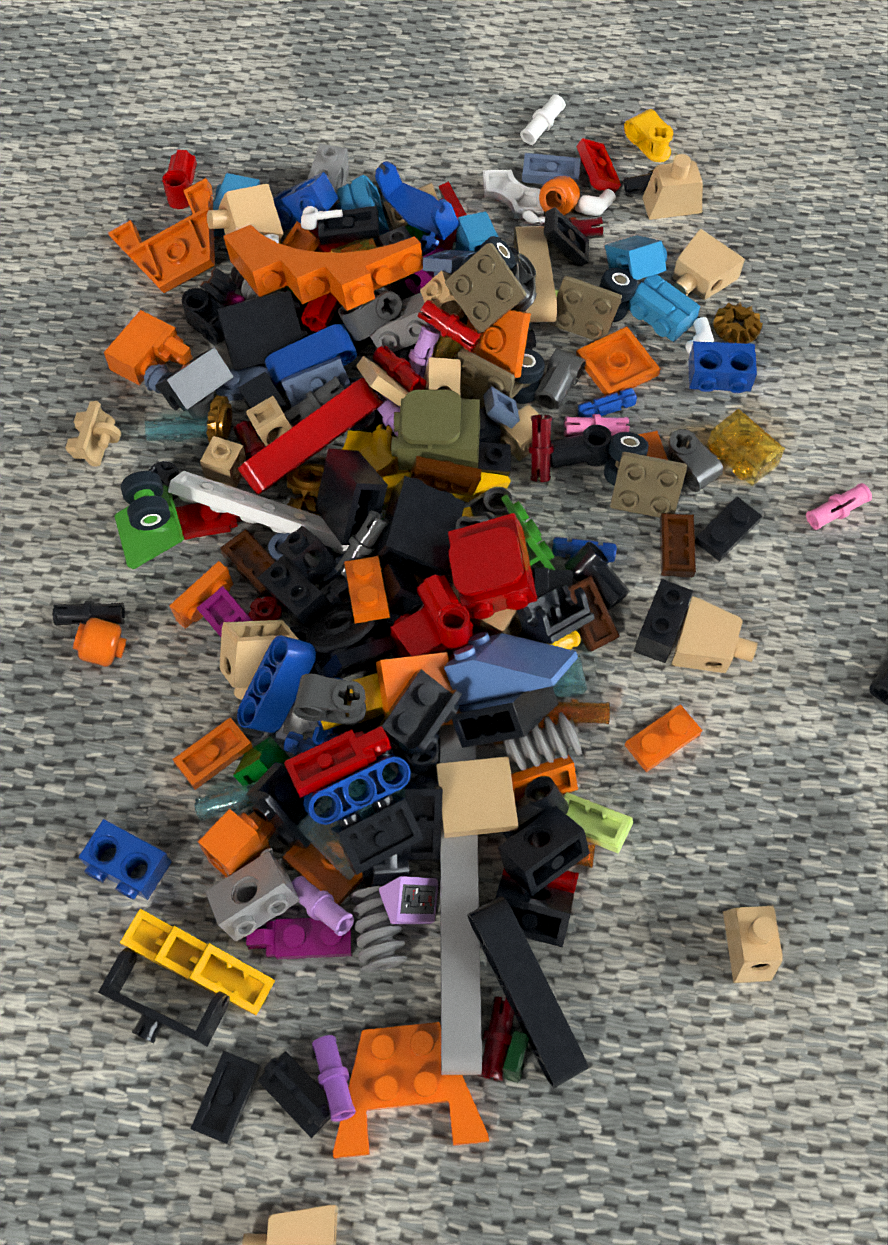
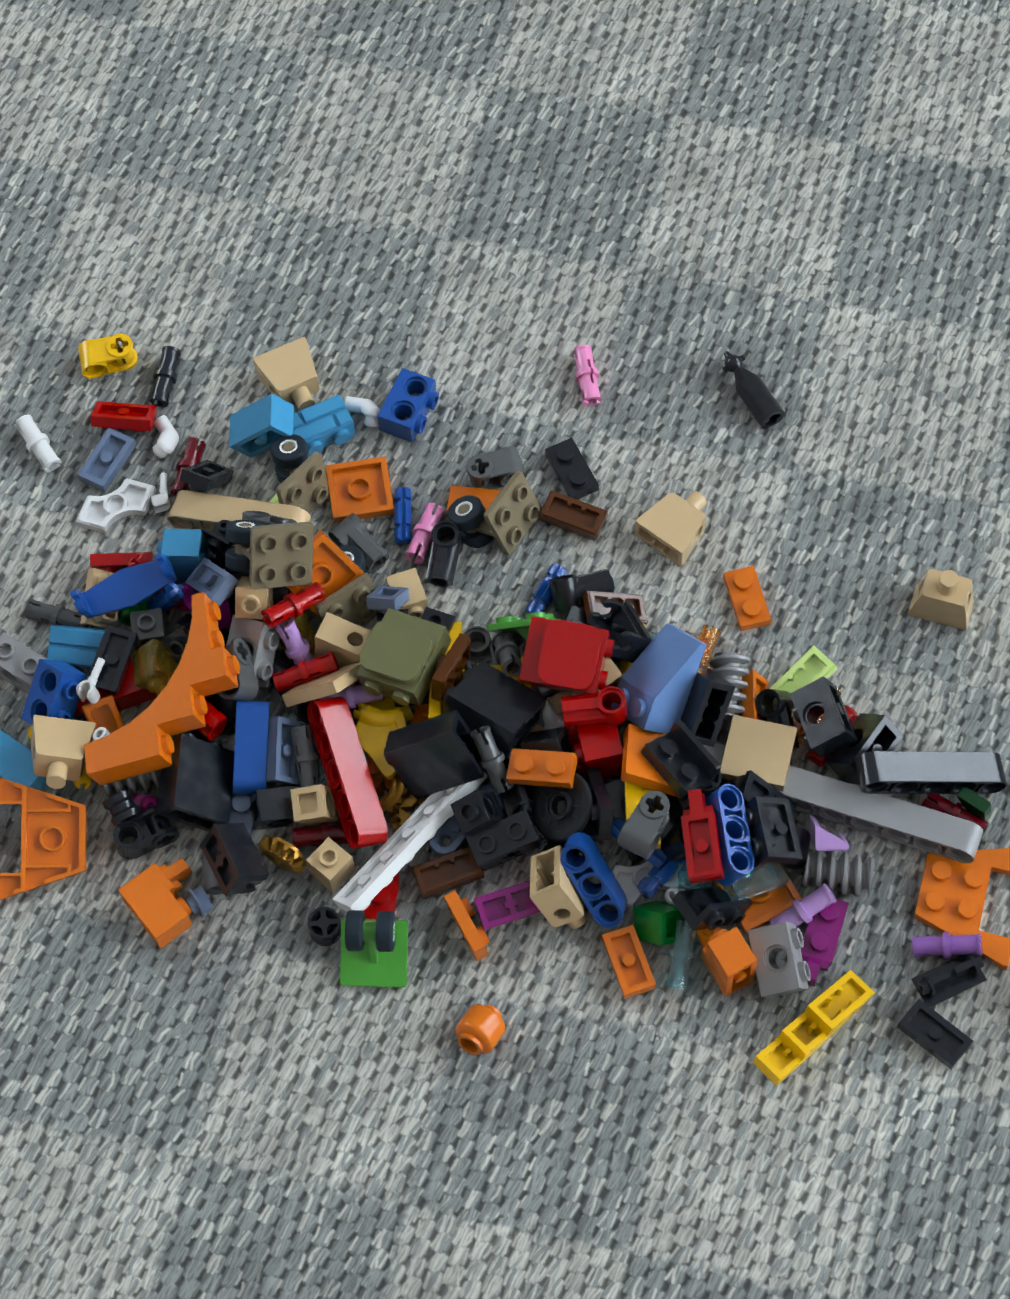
camera: 65 degrees left, 0 degrees up
(80, 613) = (442, 1034): black pin -> none
(95, 434) = (228, 973): tan hips -> none
(129, 854) = (698, 1055): blue brick -> none
(151, 1020) = (853, 1071): black piece -> none
(176, 429) = (267, 900): clear light blue pin -> none
(274, 610) = (505, 869): red plate -> none
(541, 448) = (437, 584): dark red pin -> none
(560, 193) = (148, 463): orange head -> none
(663, 621) = (645, 554): black brick -> none
(674, 189) = (195, 354): tan torso -> none
(733, 332) = (372, 379): pearl gold gear -> none
(741, 433) = (509, 409): clear yellow brick -> none

